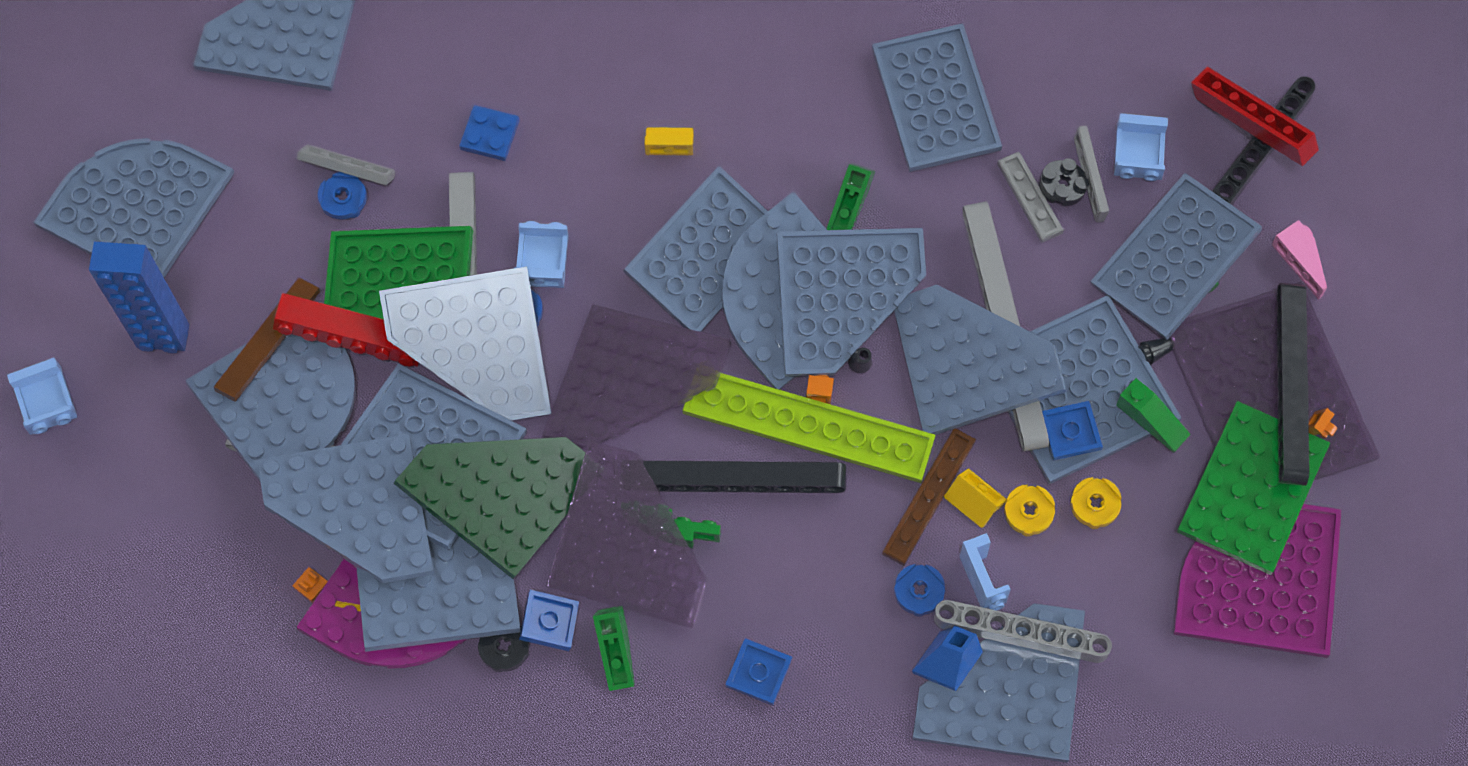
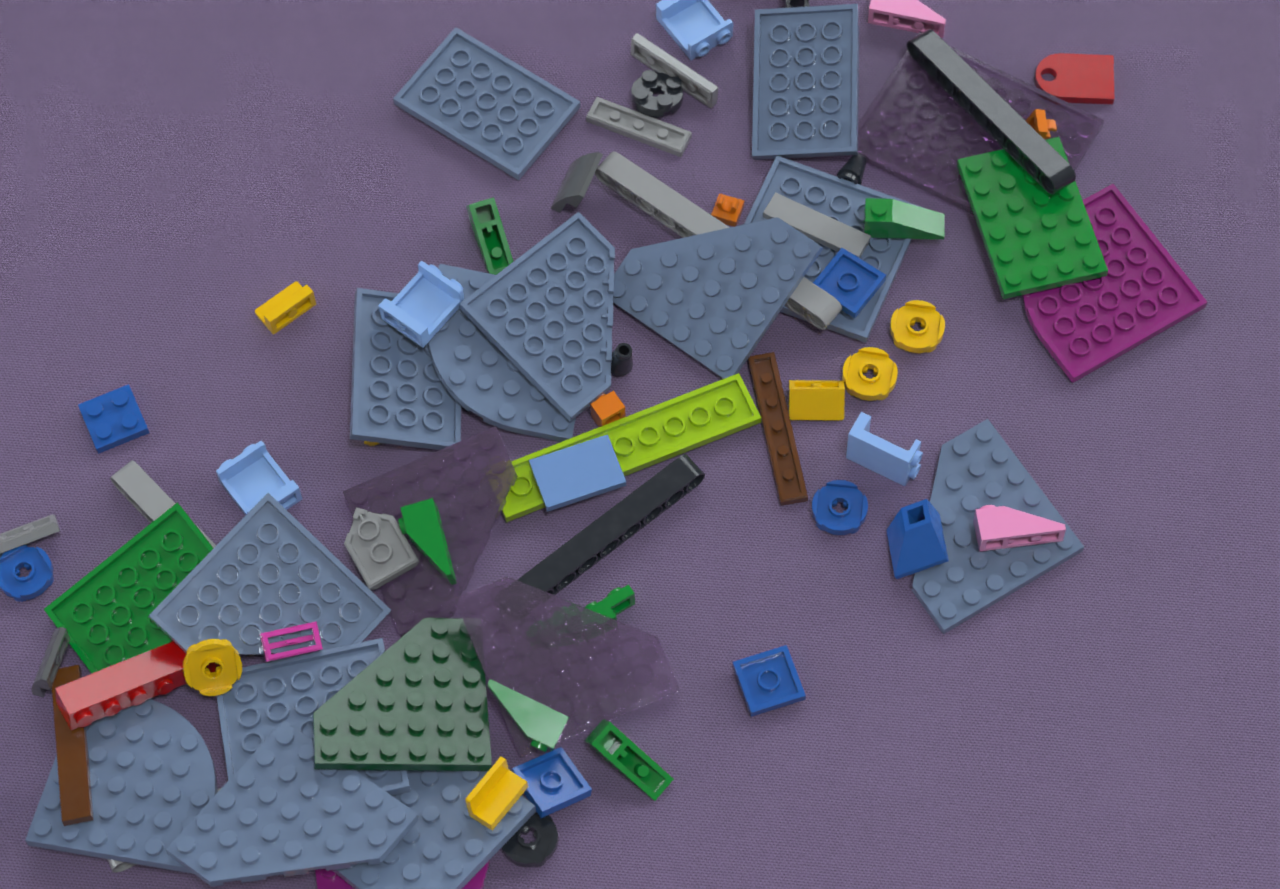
camera: 40 degrees left, 5 degrees down
(302, 271) = (51, 662): none -> dark grey slope
(402, 349) = (211, 651): none -> yellow plate
(481, 391) = (267, 647): none -> dark pink tile
(497, 598) = (495, 794): none -> yellow panel
(570, 565) = (534, 719): none -> slope
(577, 363) = (378, 548): none -> light grey tile
(615, 378) = (426, 532): none -> green slope
(752, 213) = (423, 304): none -> light blue panel
(757, 417) = (577, 473): none -> medium blue tile
(944, 204) = (576, 181): none -> dark grey slope
(1020, 702) = (1009, 528): none -> bright pink slope
(1035, 628) = (964, 461): light grey beam -> none
(1038, 308) = (728, 209): none -> orange tile
(1087, 370) = (817, 225): none -> light grey tile
(1393, 408) = (1078, 77): none -> tile

